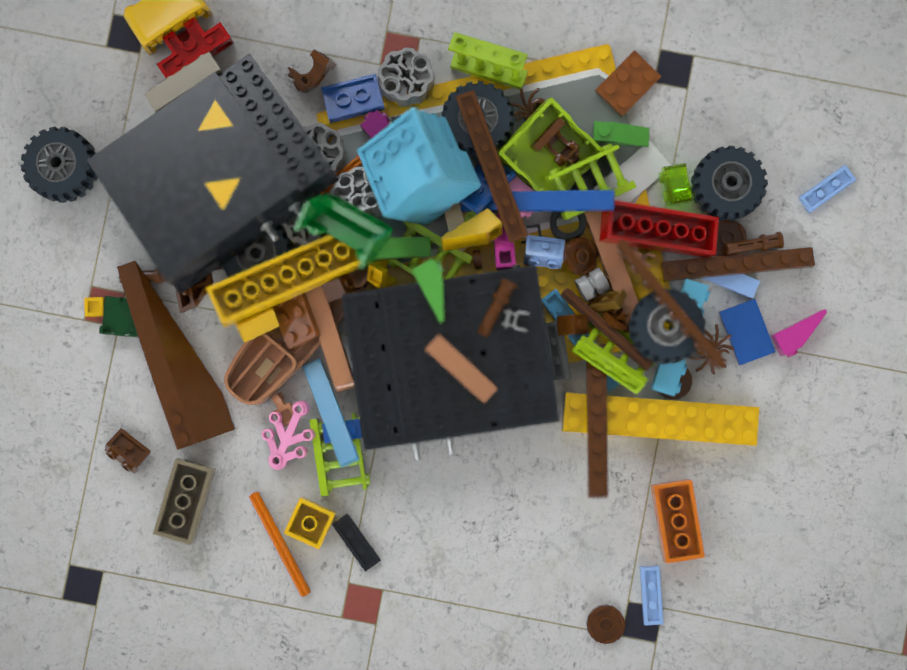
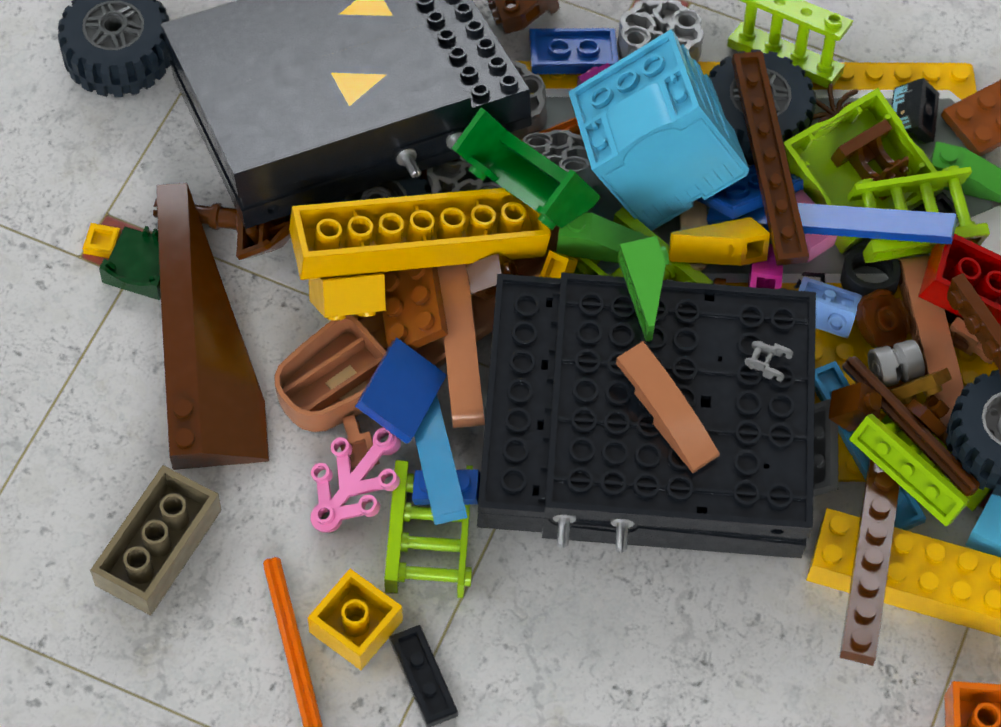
camera: 10 degrees right, 25 degrees down
(126, 450) = (85, 450): reddish brown bracket -> none
(301, 377) = (401, 390): none -> blue tile
(501, 298) = (750, 322): reddish brown pin -> none
(577, 93) = (917, 108): none -> black panel

